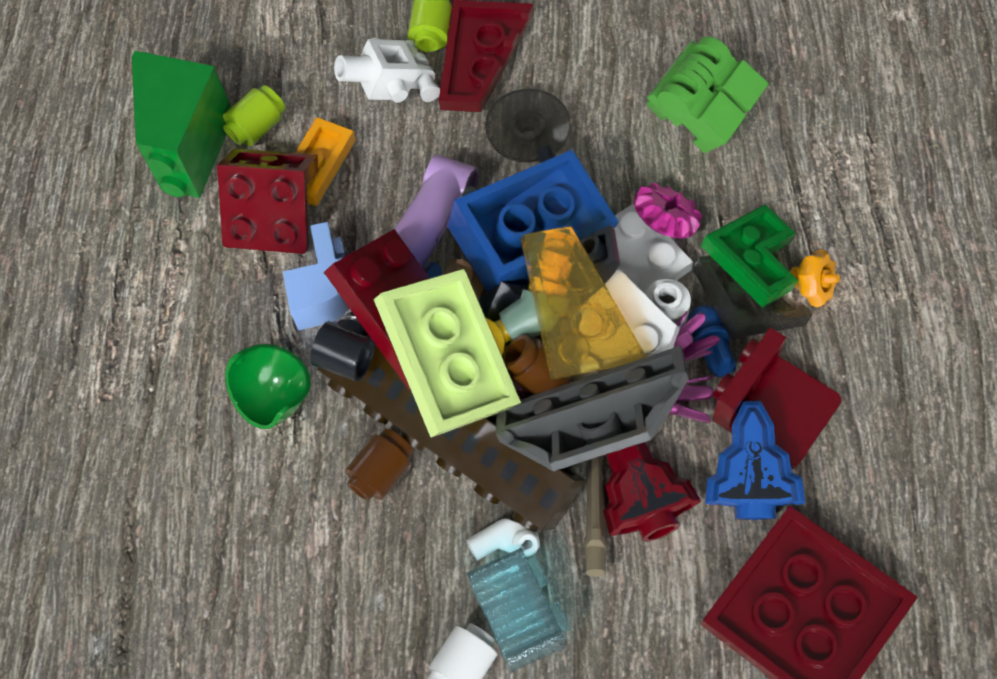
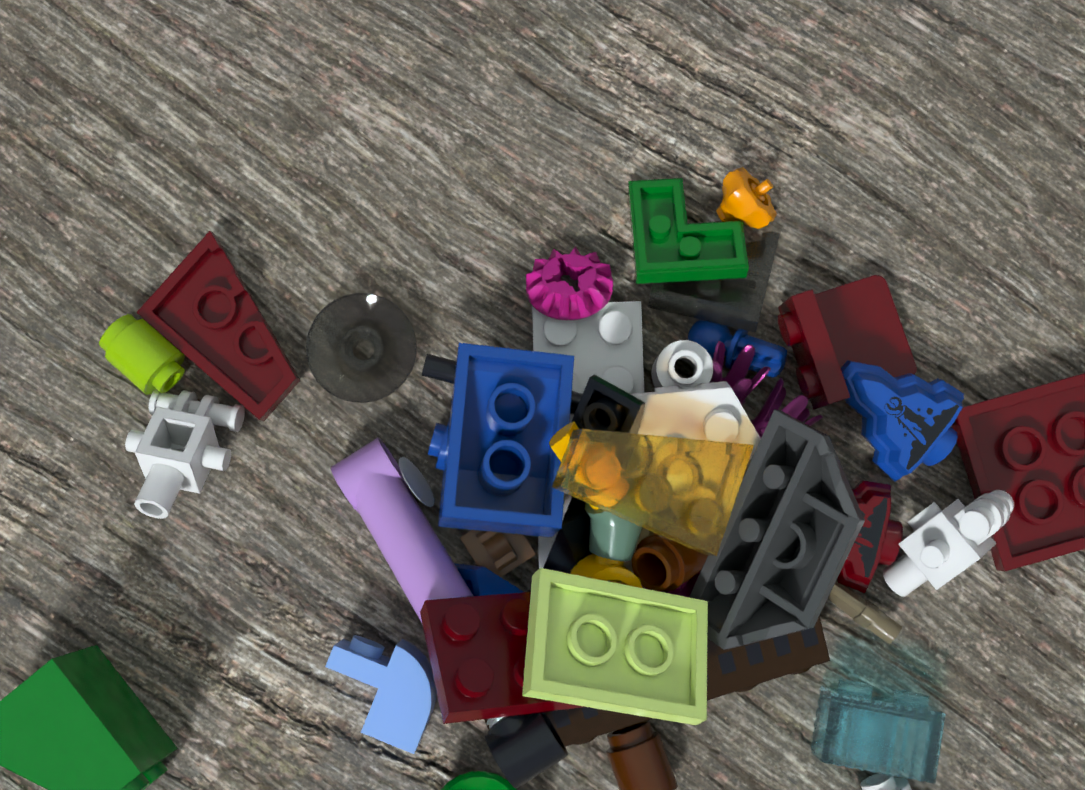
camera: 60 degrees left, 20 degrees up
(253, 115) = (122, 631): lime brick -> none
(265, 200) = (244, 686): dark red bracket -> none
(332, 146) = (233, 598): light orange plate -> none
(503, 535) = (791, 691): white arm -> none
(692, 555) = (947, 541): none -> white piece
(706, 92) = (467, 140): bright green hips -> none

